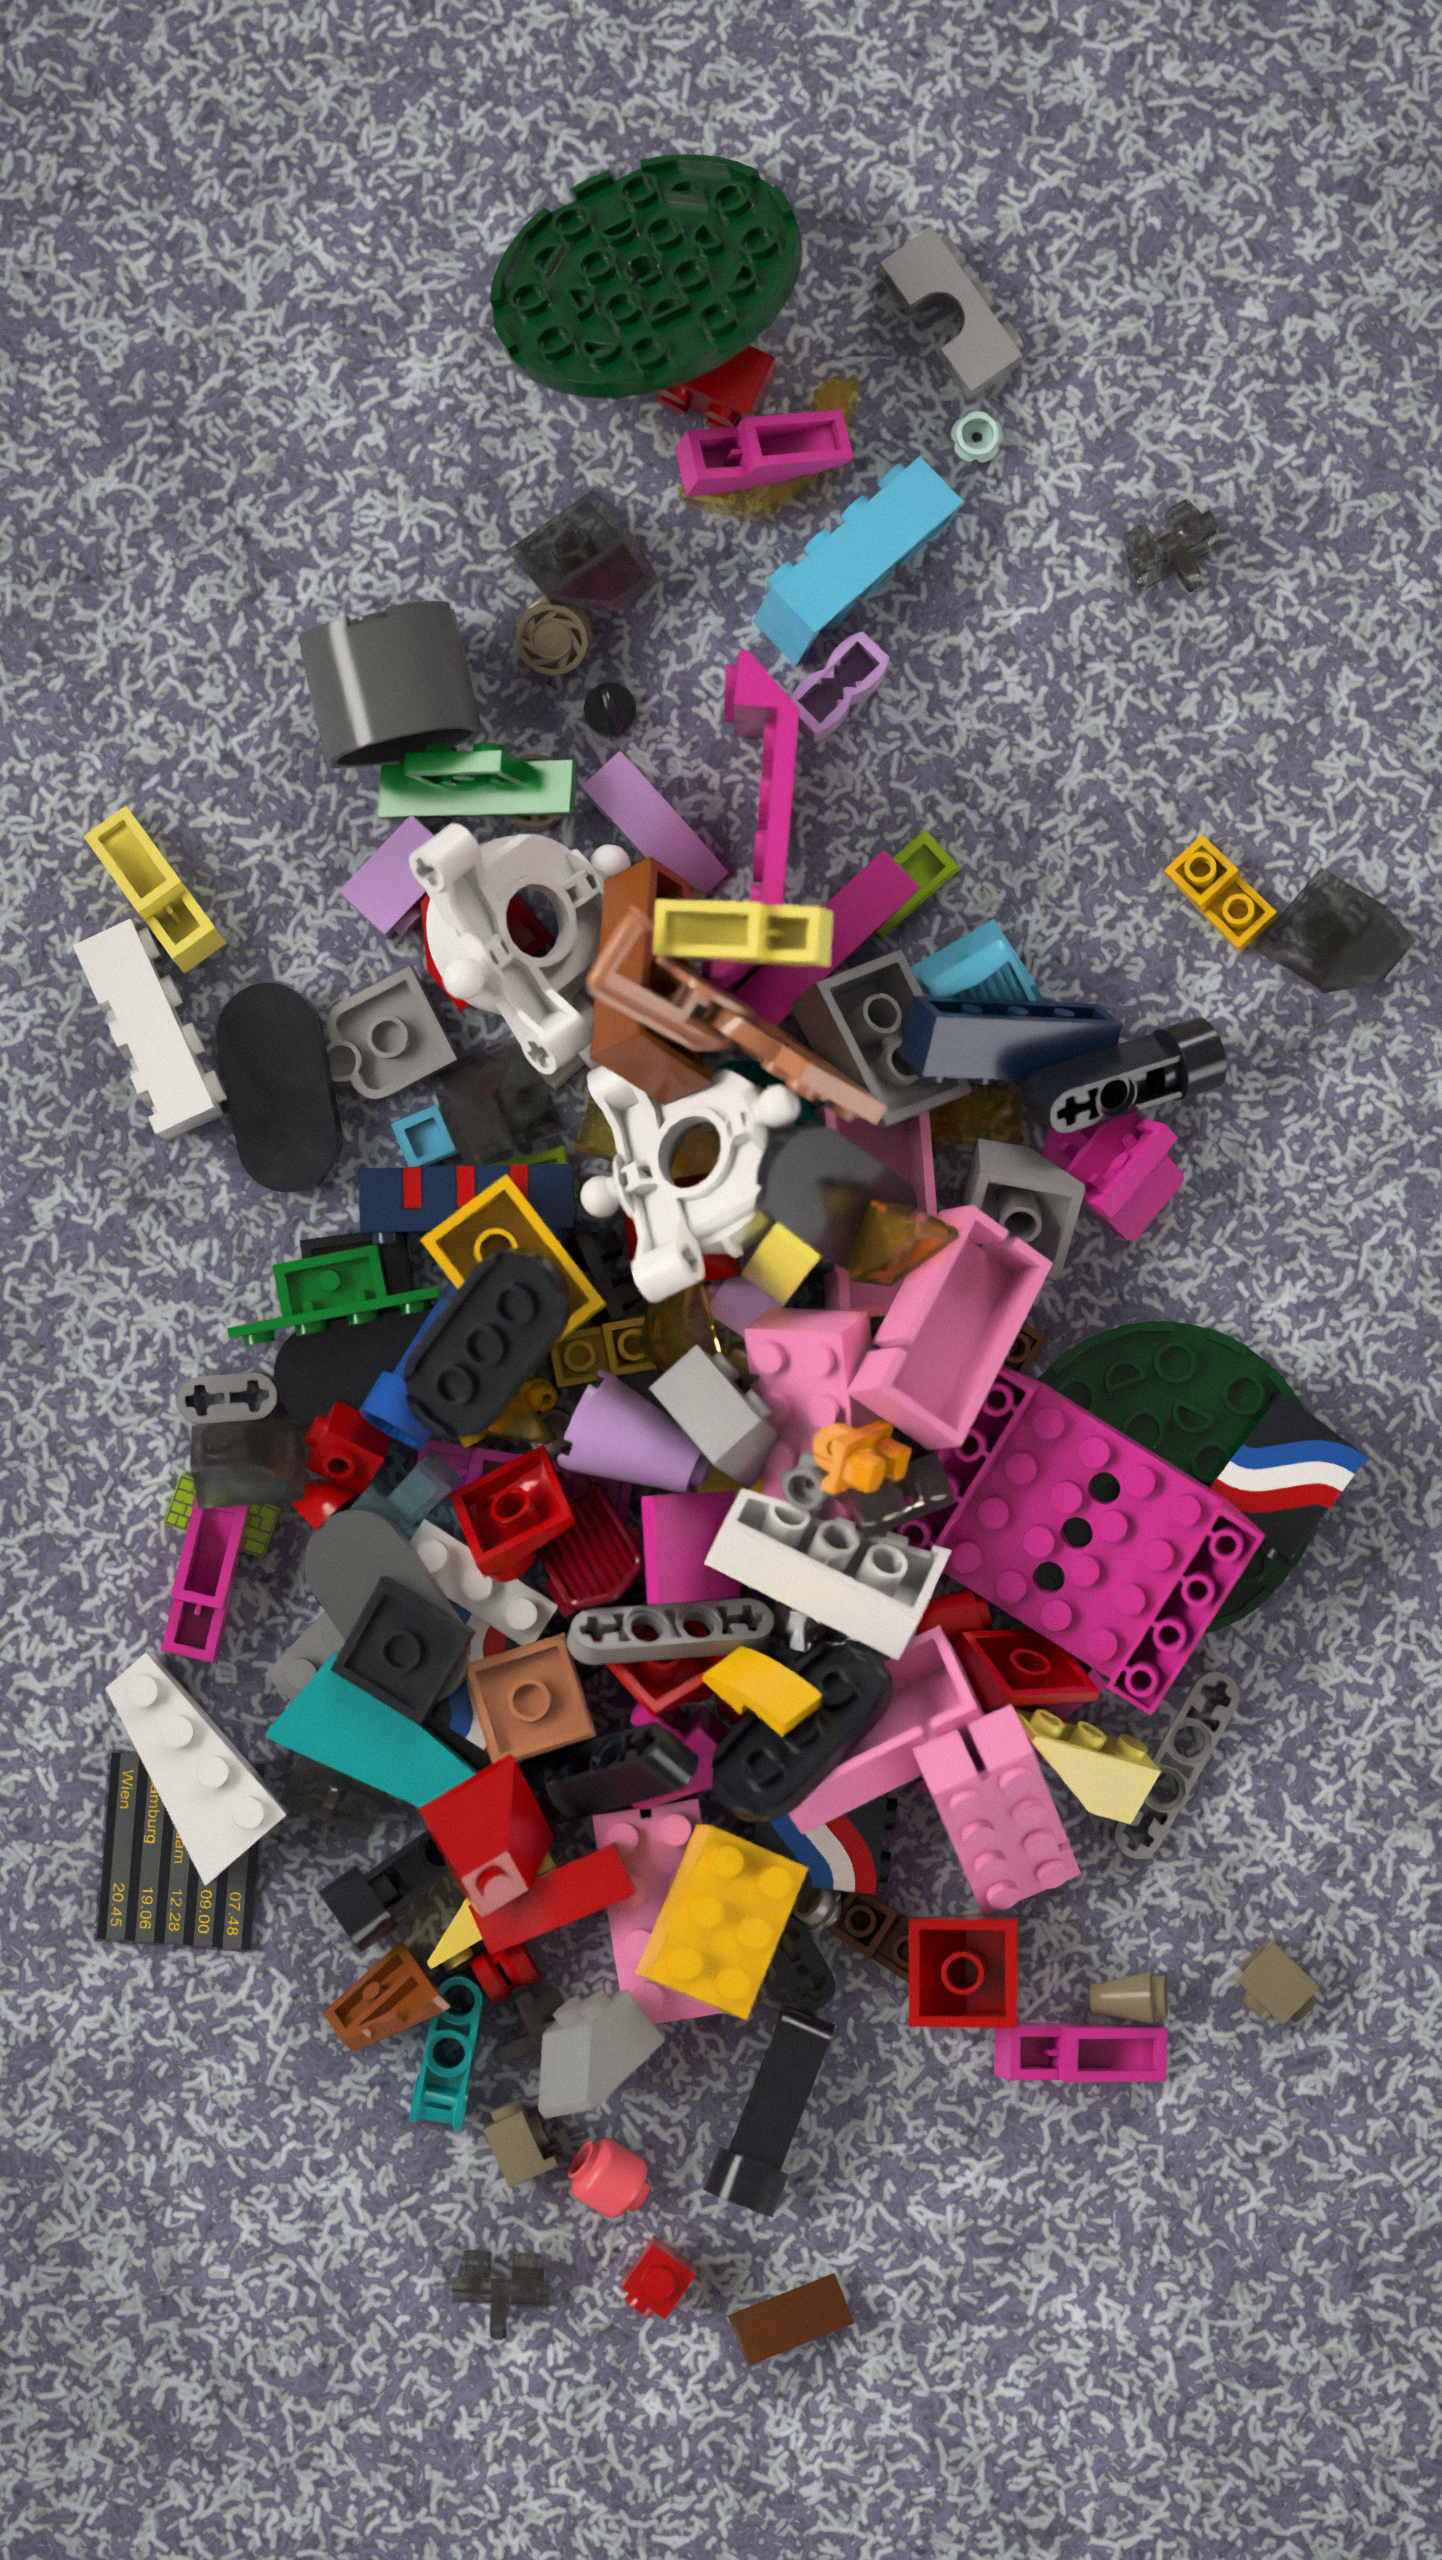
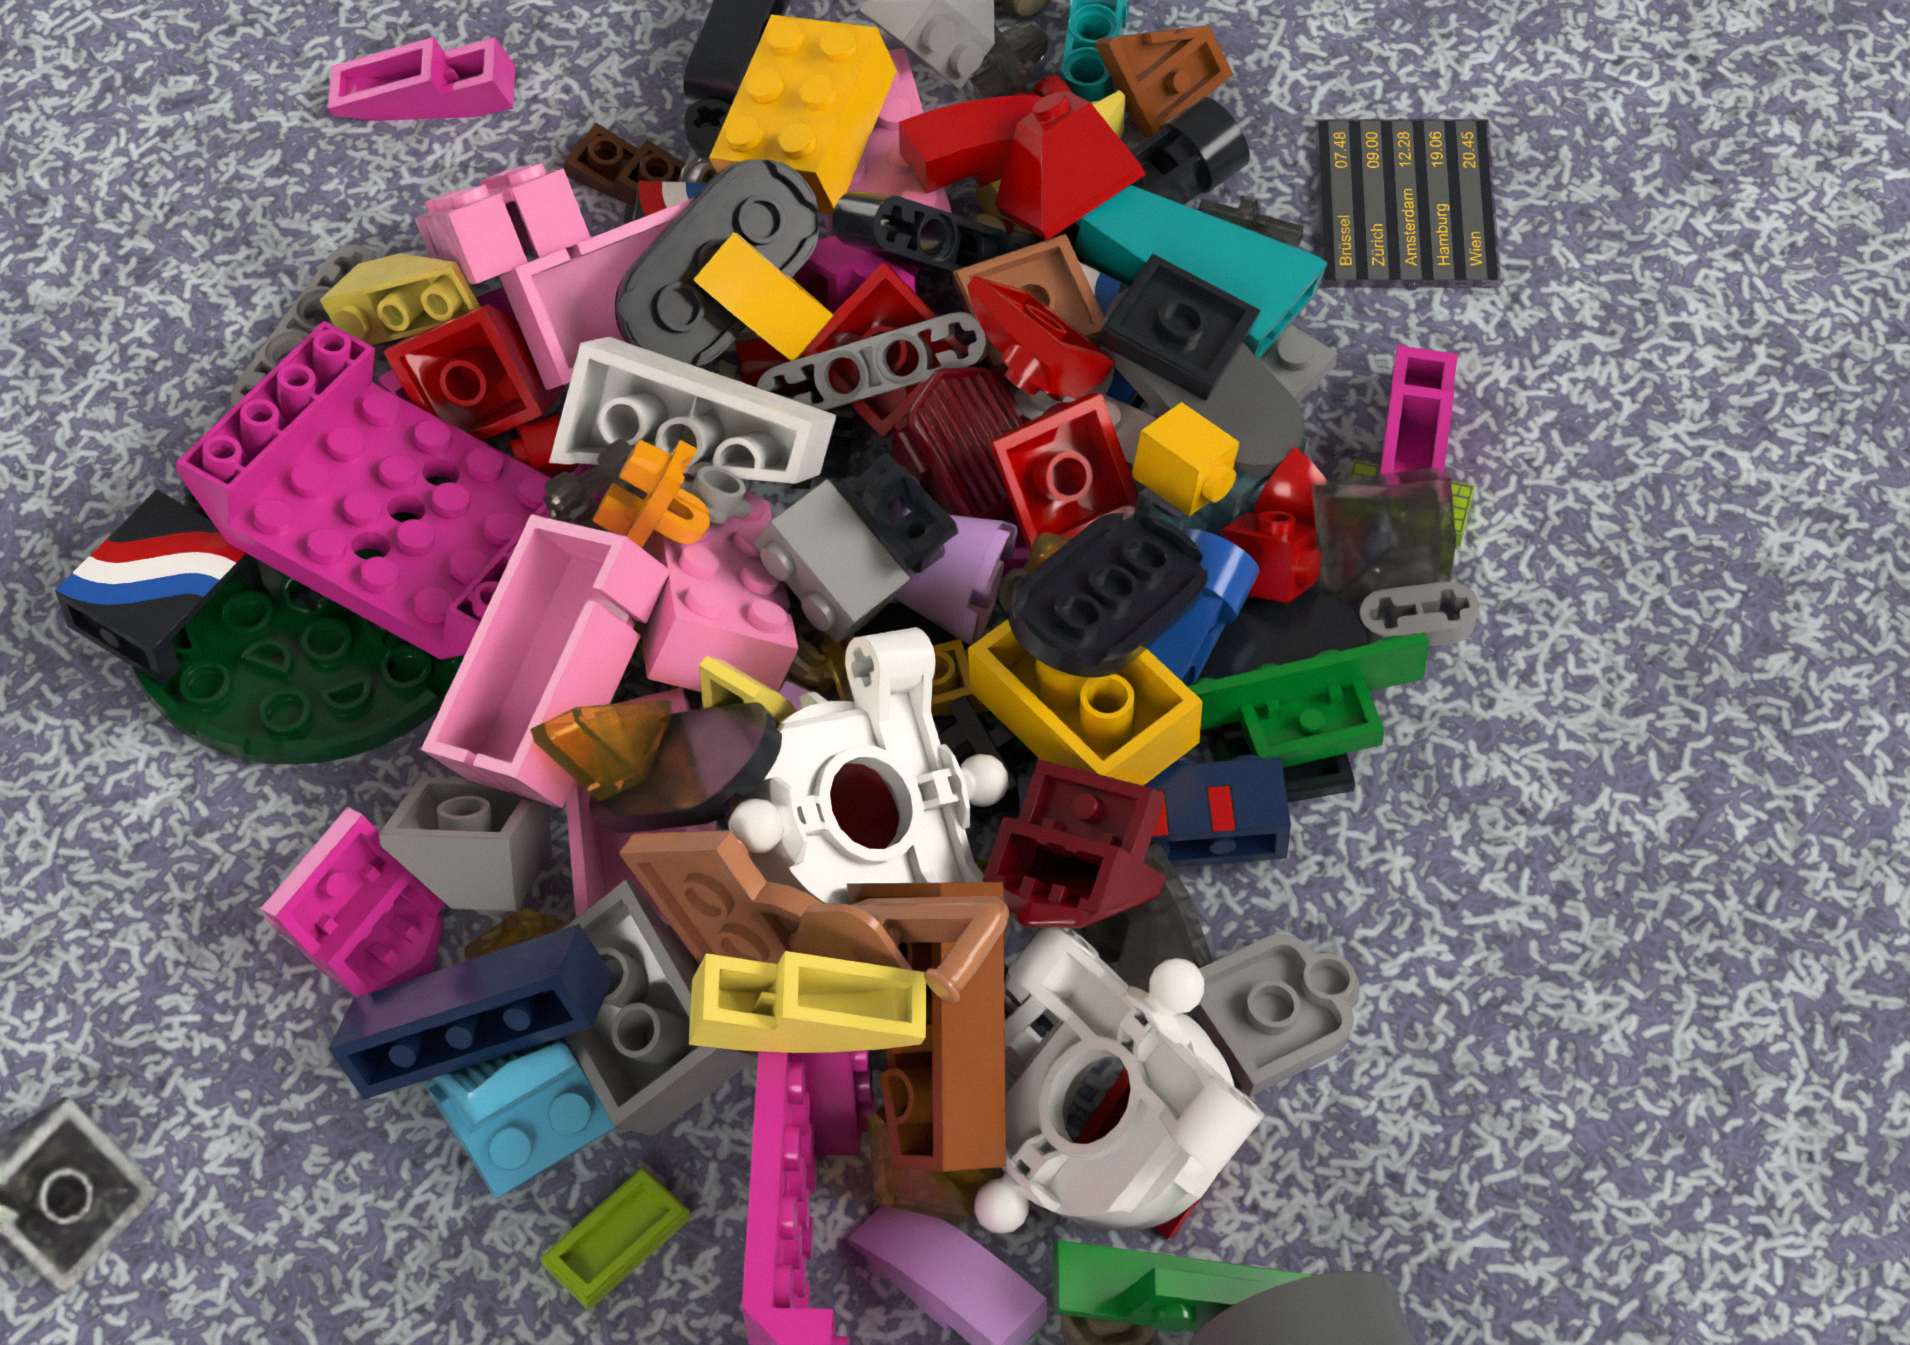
camera: 175 degrees right, 30 degrees down
(150, 1030) = (1576, 983): white wedge -> none
(155, 889) = (1601, 1165): light yellow slope -> none
(198, 1772) = (1403, 252): white wedge -> none
(279, 1087) = (1403, 944): black tile -> none
(385, 886) = (1278, 1192): lavender piece -> none
(408, 1506) = (1185, 459): none -> yellow brick
(425, 1138) = (1220, 903): medium azure tile -> none
(526, 1631) = (1037, 342): none -> red slope
(534, 1114) = (1076, 849): none -> dark red piece
(662, 1463) = (880, 502): none -> black hips
(677, 1542) = (866, 426): dark pink tile -> none
(857, 915) = (685, 1170): dark pink slope -> none
(964, 1971) = (542, 117): red slope -> none
(1128, 1076) = (323, 988): black beam -> none
(1131, 1998) = (365, 131): dark tan cone -> none
(1220, 893) = (197, 1249): yellow slope -> none
(1276, 1985) = (208, 148): dark tan brick -> none

